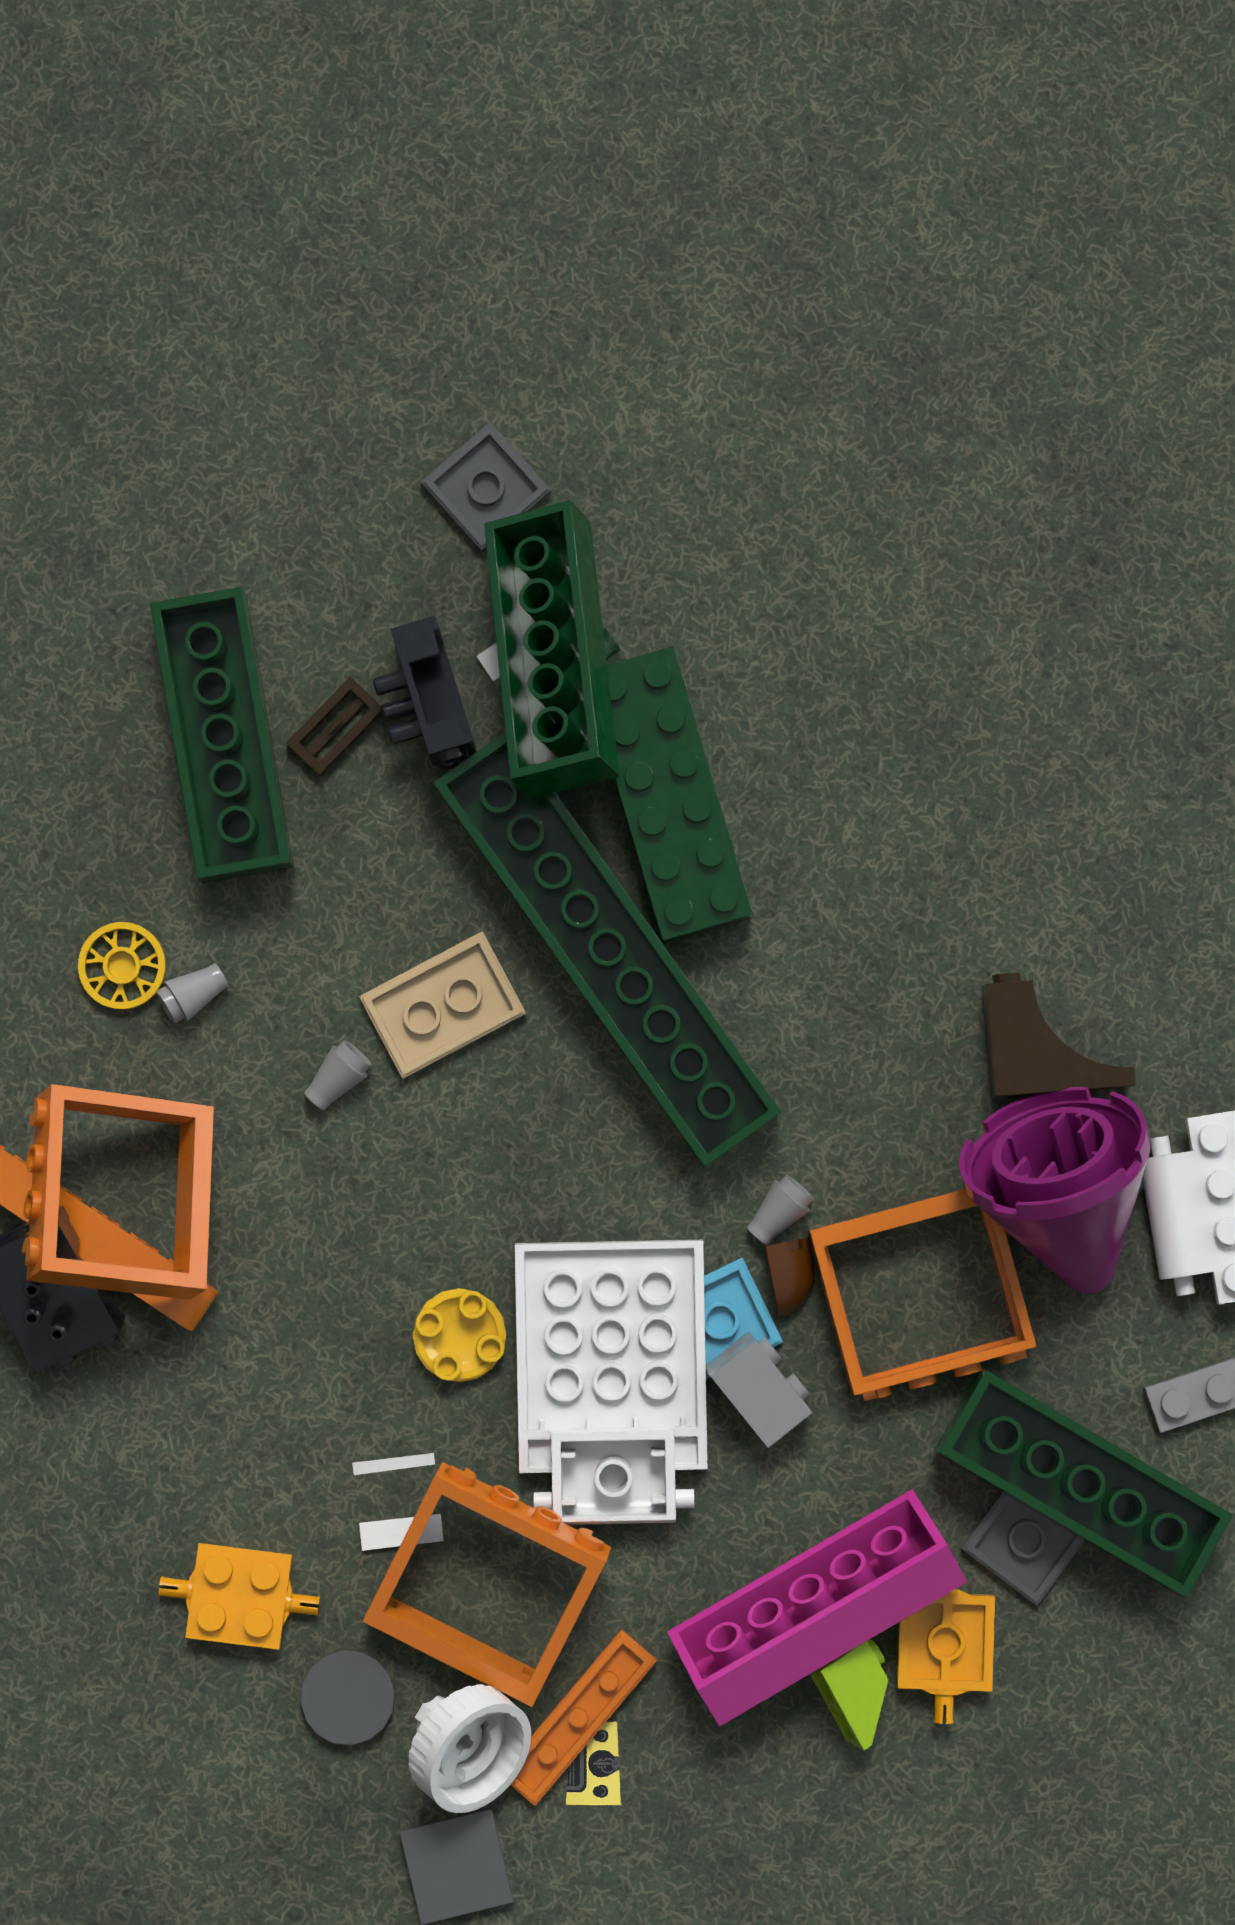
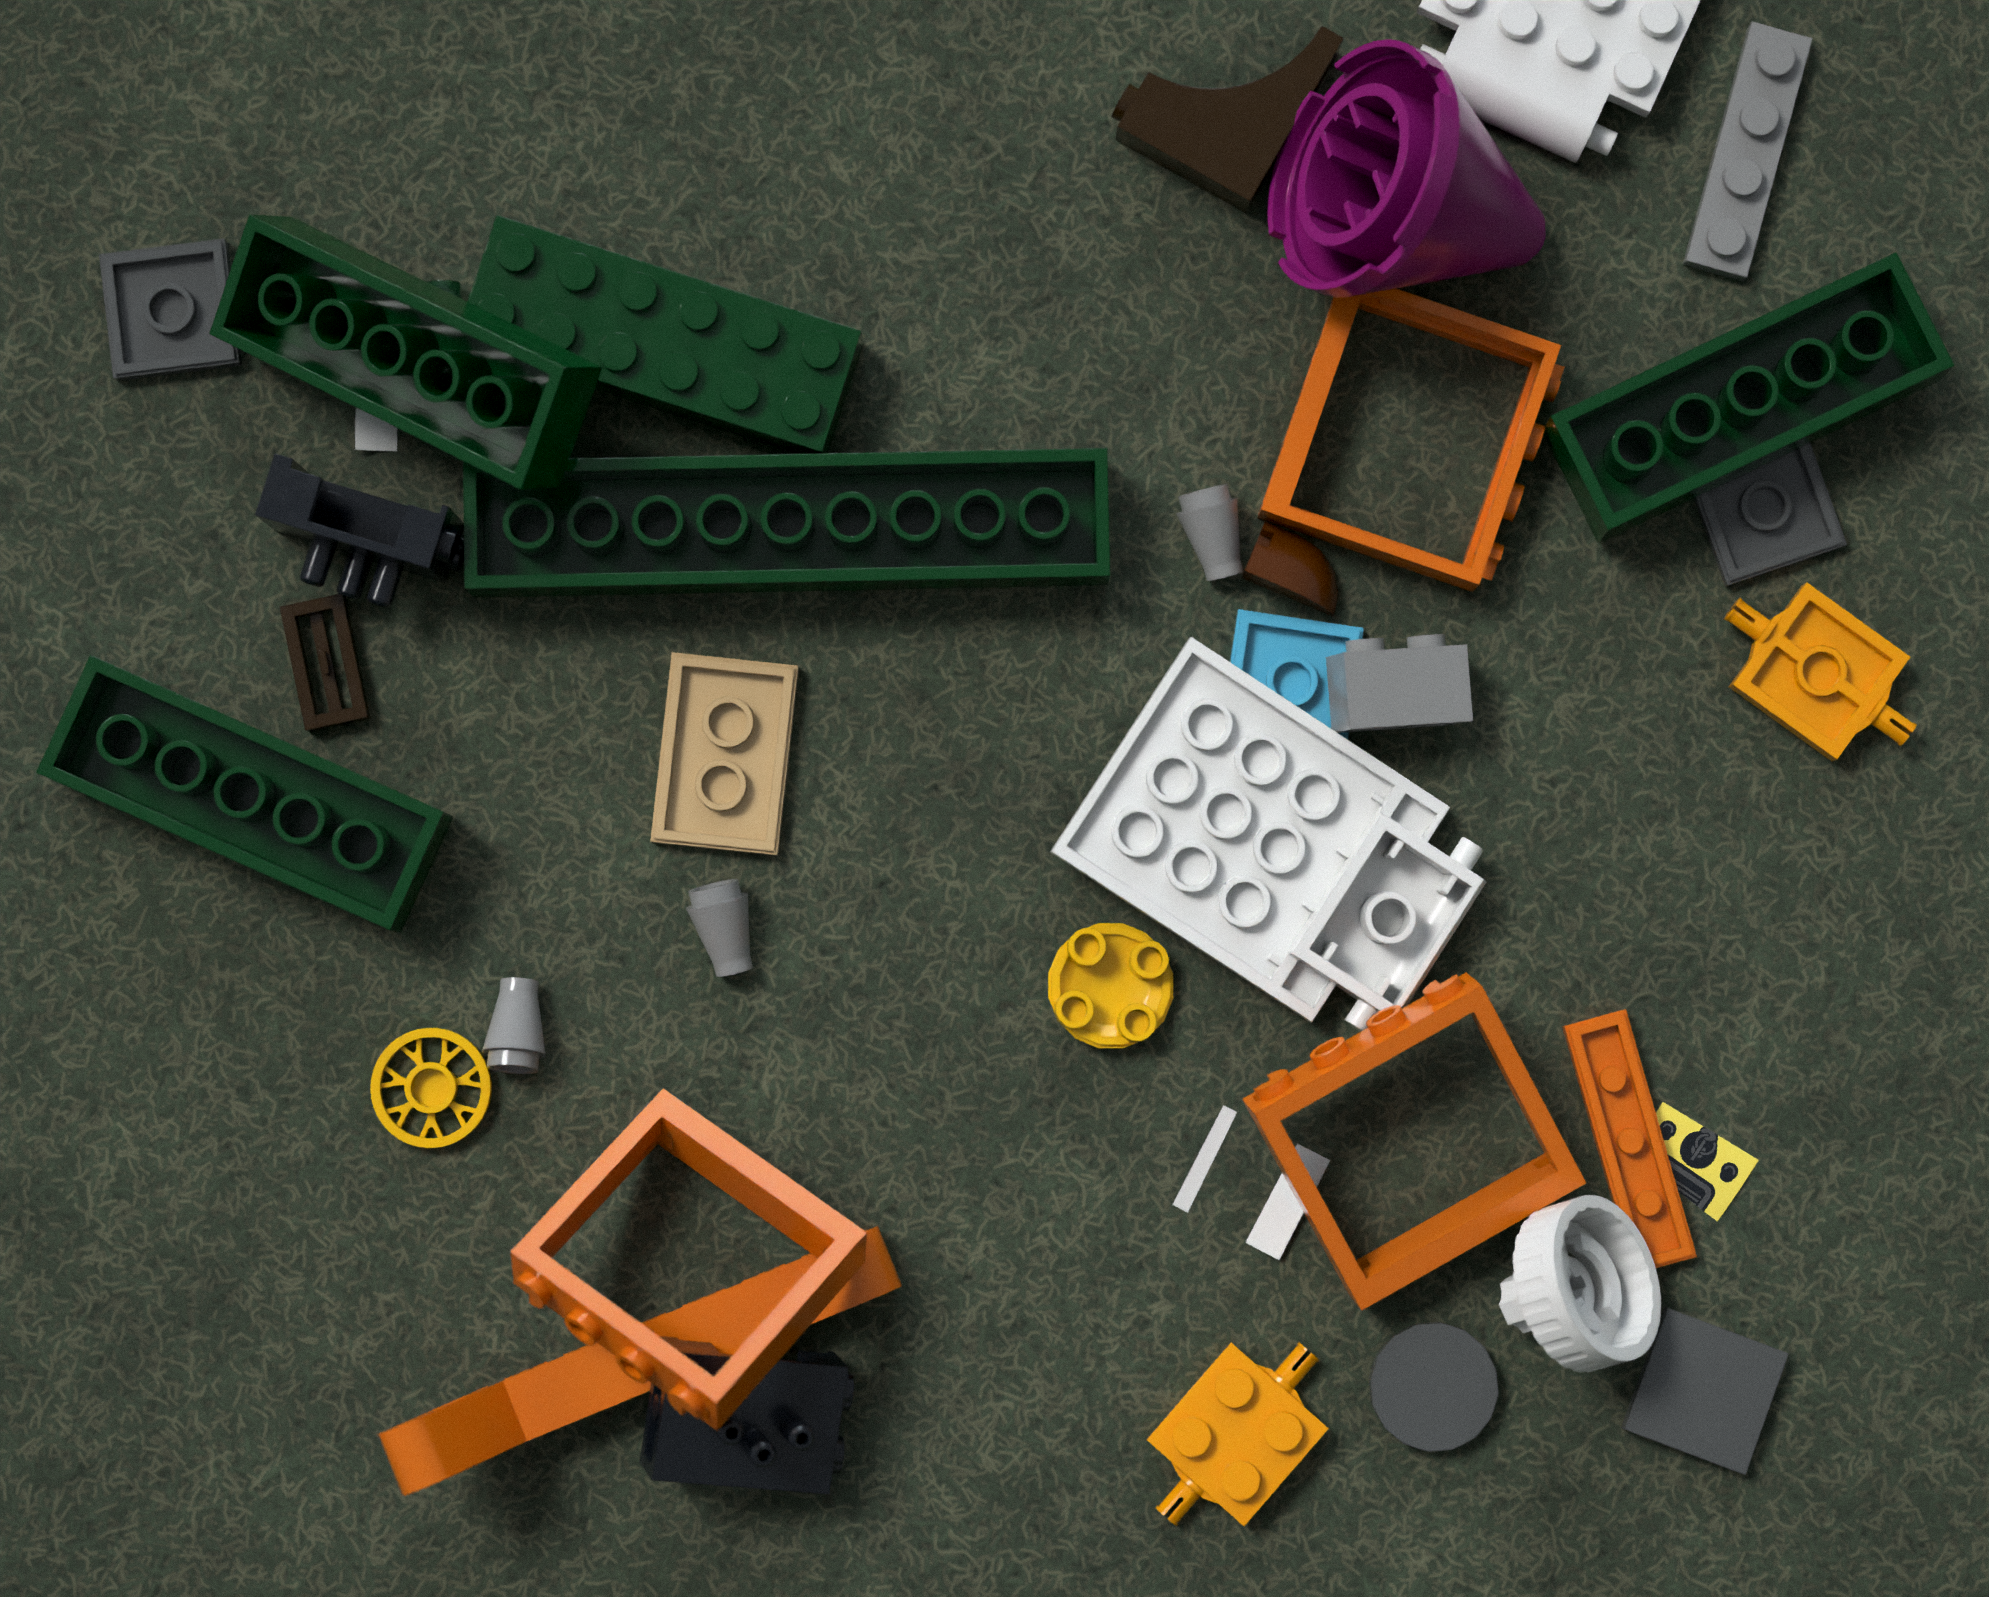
camera: 55 degrees left, 0 degrees up
(816, 1607) = (1688, 785): dark pink brick -> none
(854, 1691) = (1800, 809): lime slope -> none

